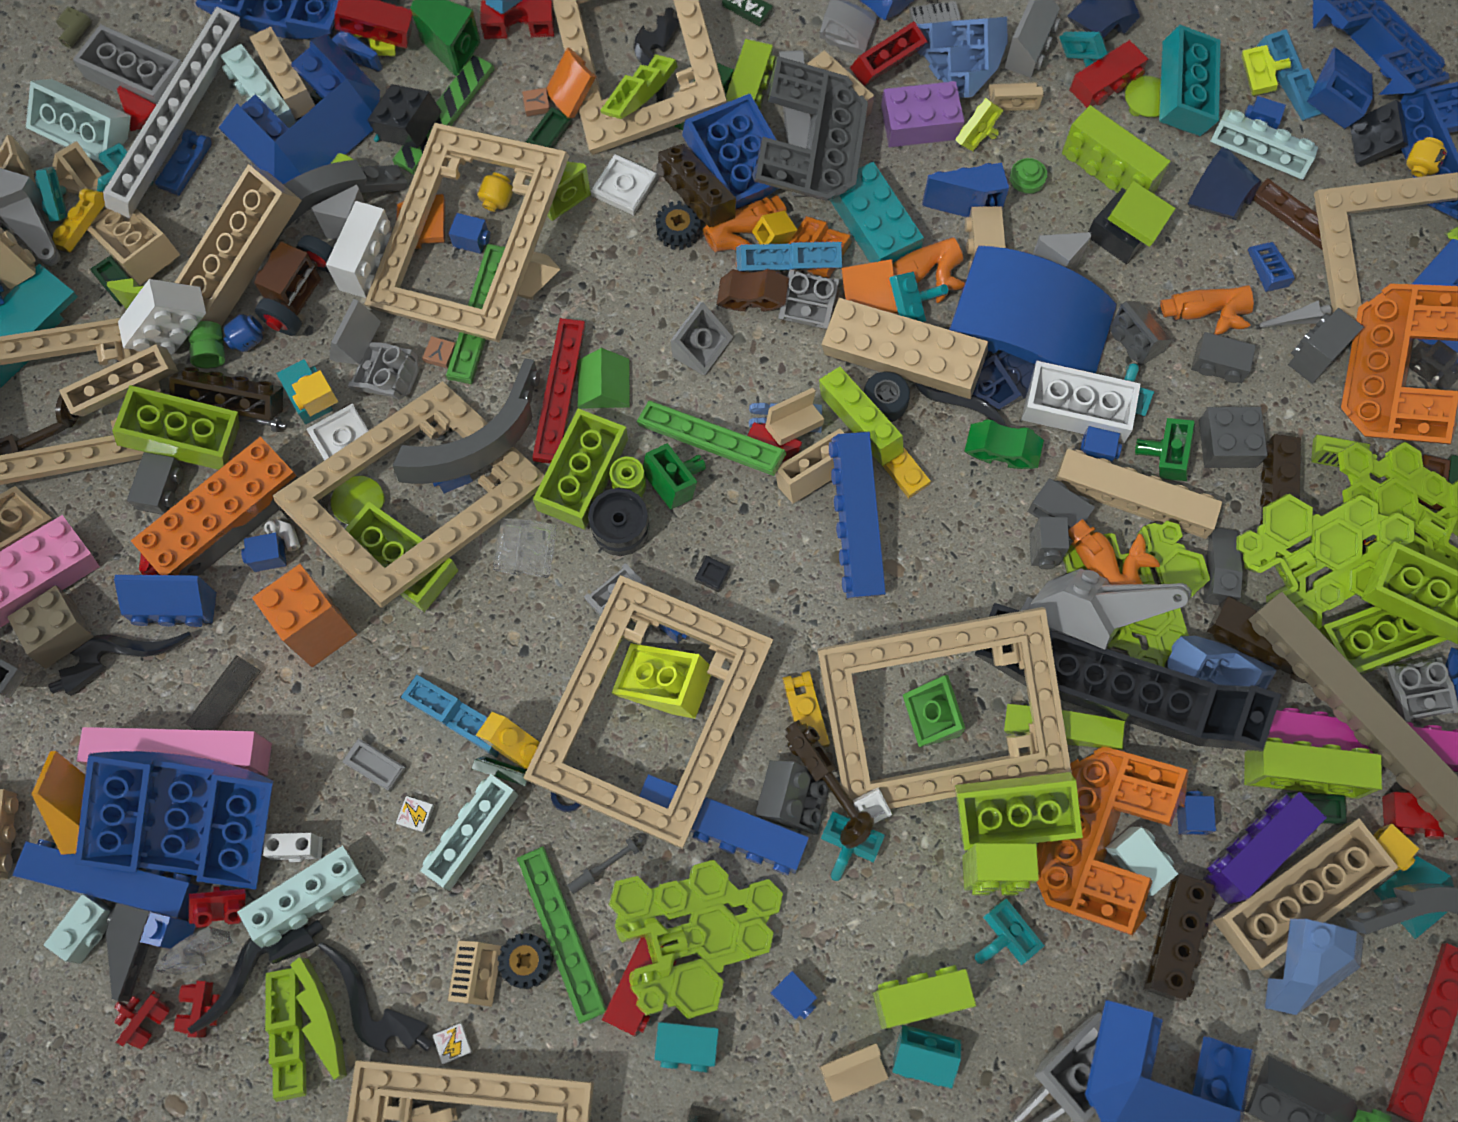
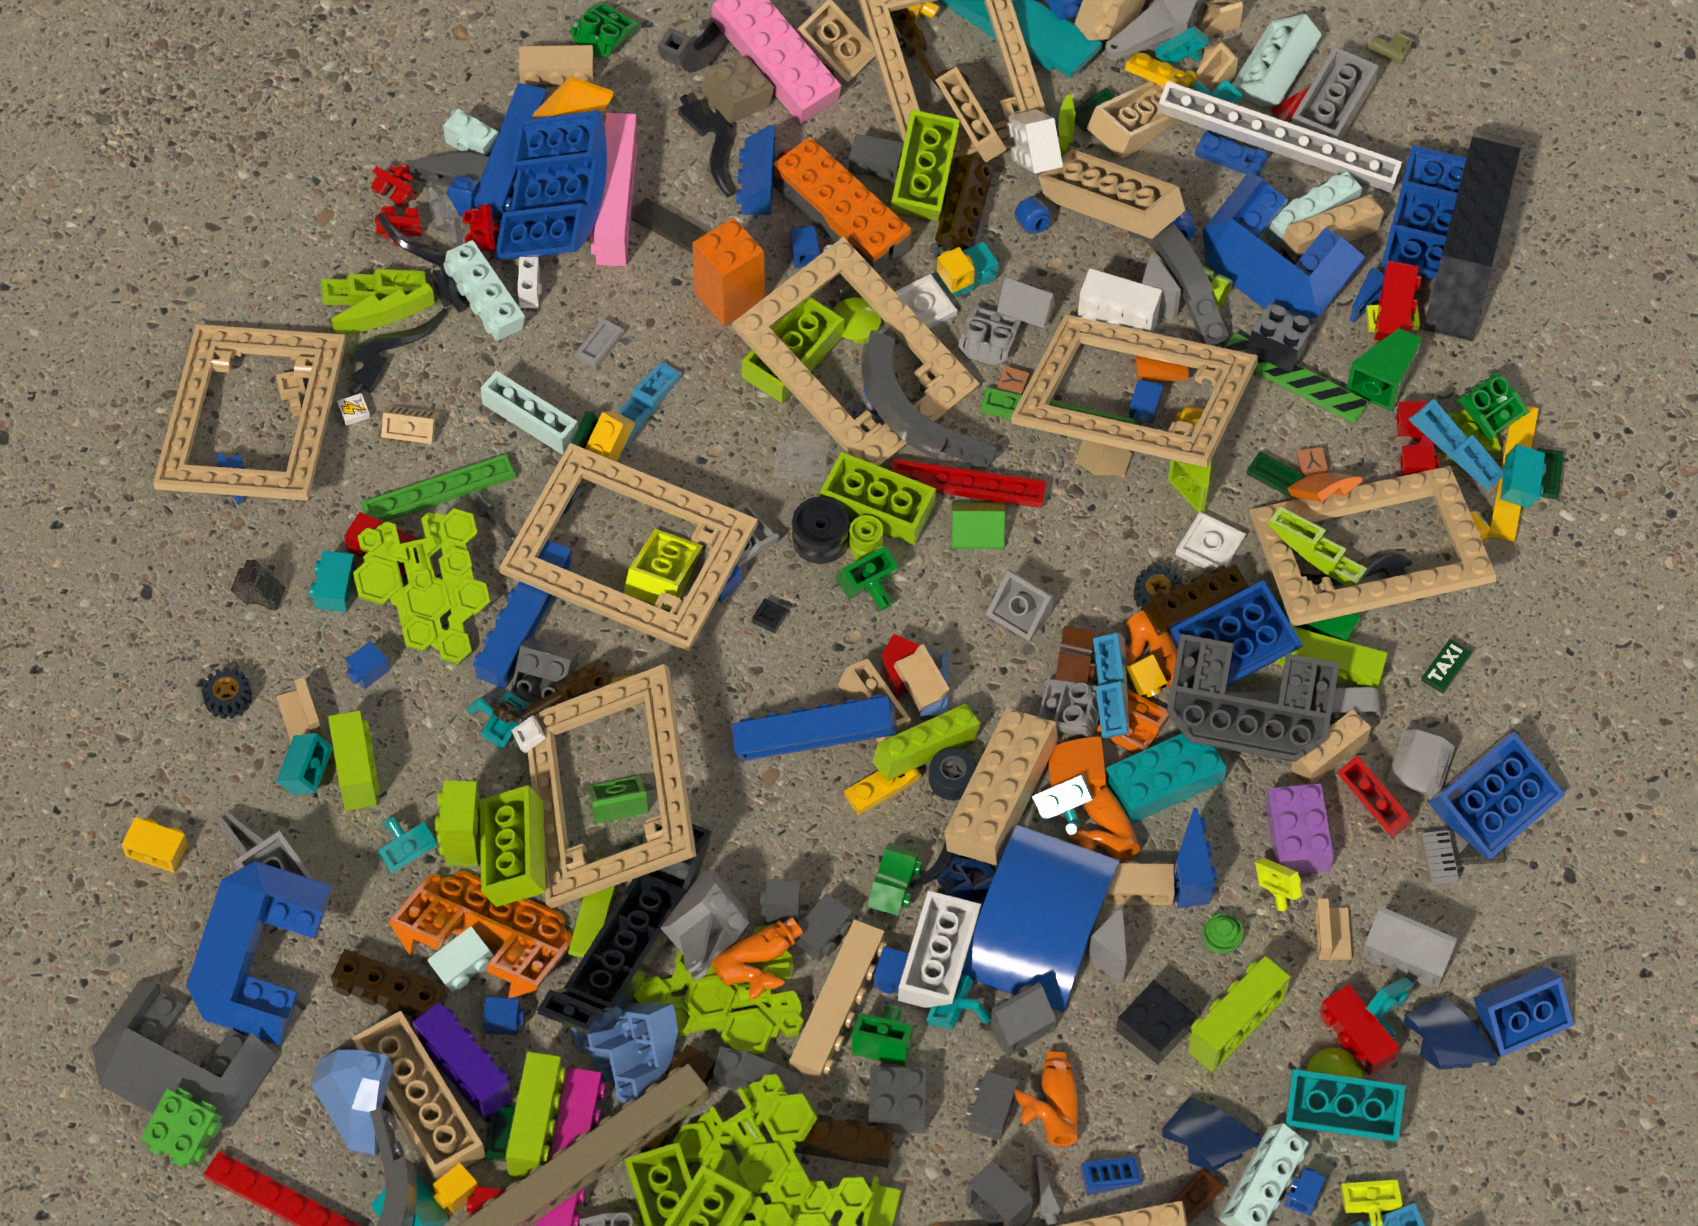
camera: 90 degrees right, 10 degrees down
(206, 345) = (1018, 185): bright green wheel -> none
(289, 282) = (1080, 245): brick -> none
(415, 814) = (552, 375): tile -> none
(533, 967) = (416, 470): black wheel -> none
(711, 438) = (906, 609): bright green tile -> none
(965, 51) = (1387, 877): medium blue brick -> none
(1141, 213) = (1156, 1021): lime tile -> none

